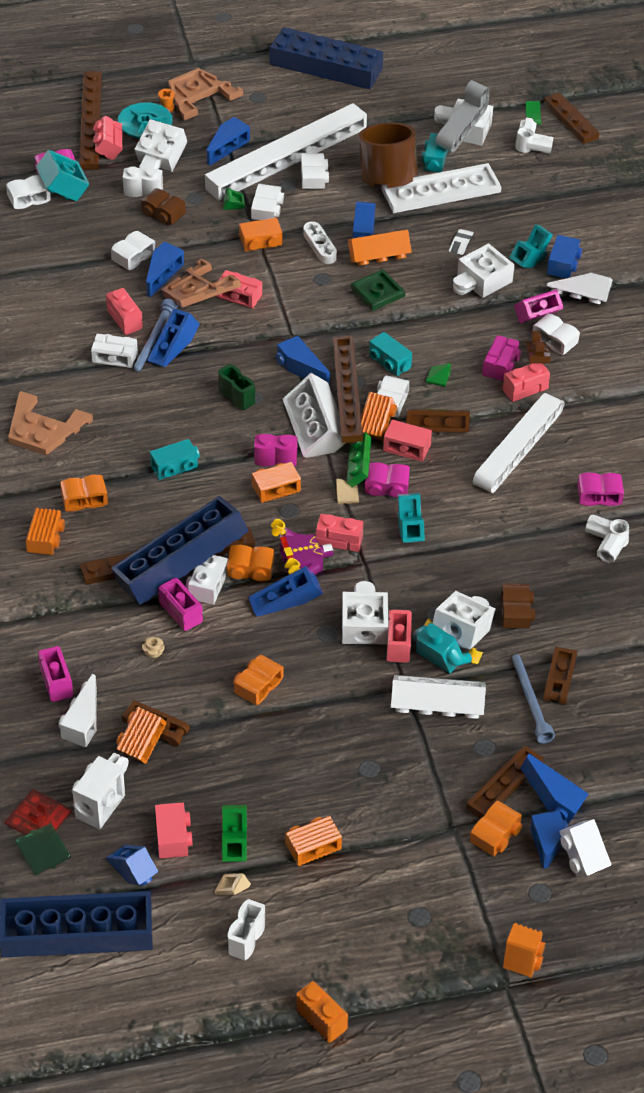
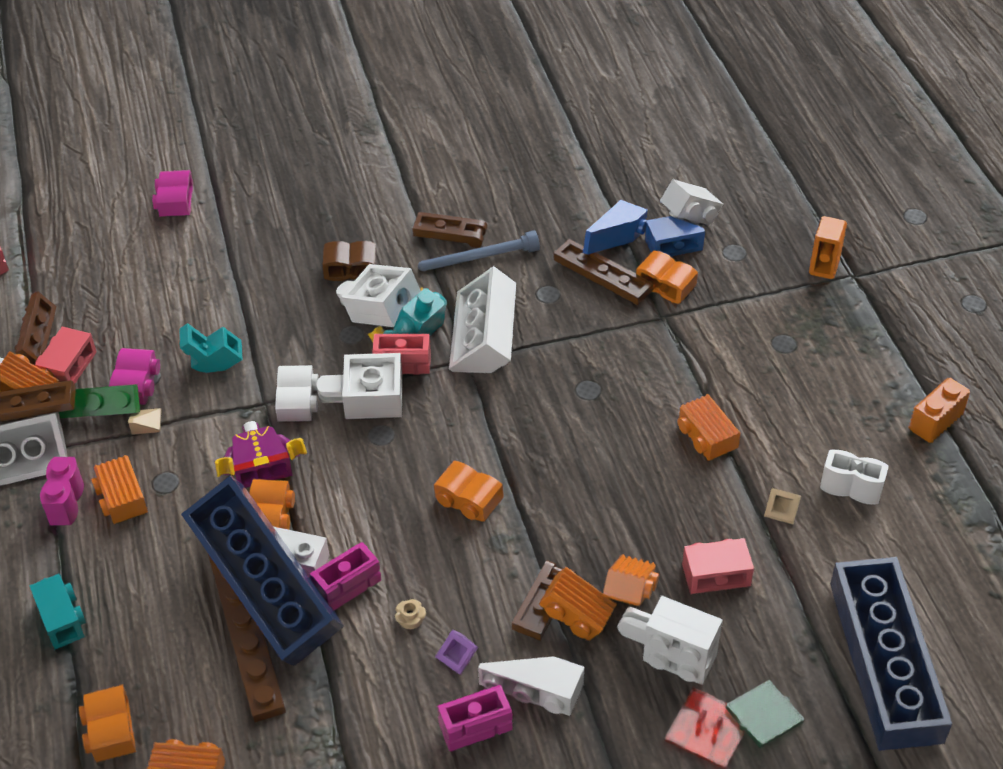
camera: 90 degrees left, 0 degrees up
(120, 672) = (456, 651): none -> medium lavender slope
(133, 864) = (775, 604): slope -> none
(156, 767) = (630, 580): none -> orange brick
(234, 833) = (720, 501): green brick -> none
(287, 593) = (325, 468): blue slope -> none
(340, 532) = (223, 417): coral brick -> none
(369, 570) = (295, 393): none -> white brick
(518, 443) = (88, 259): white beam -> none
(614, 534) = (248, 182): white piece -> none

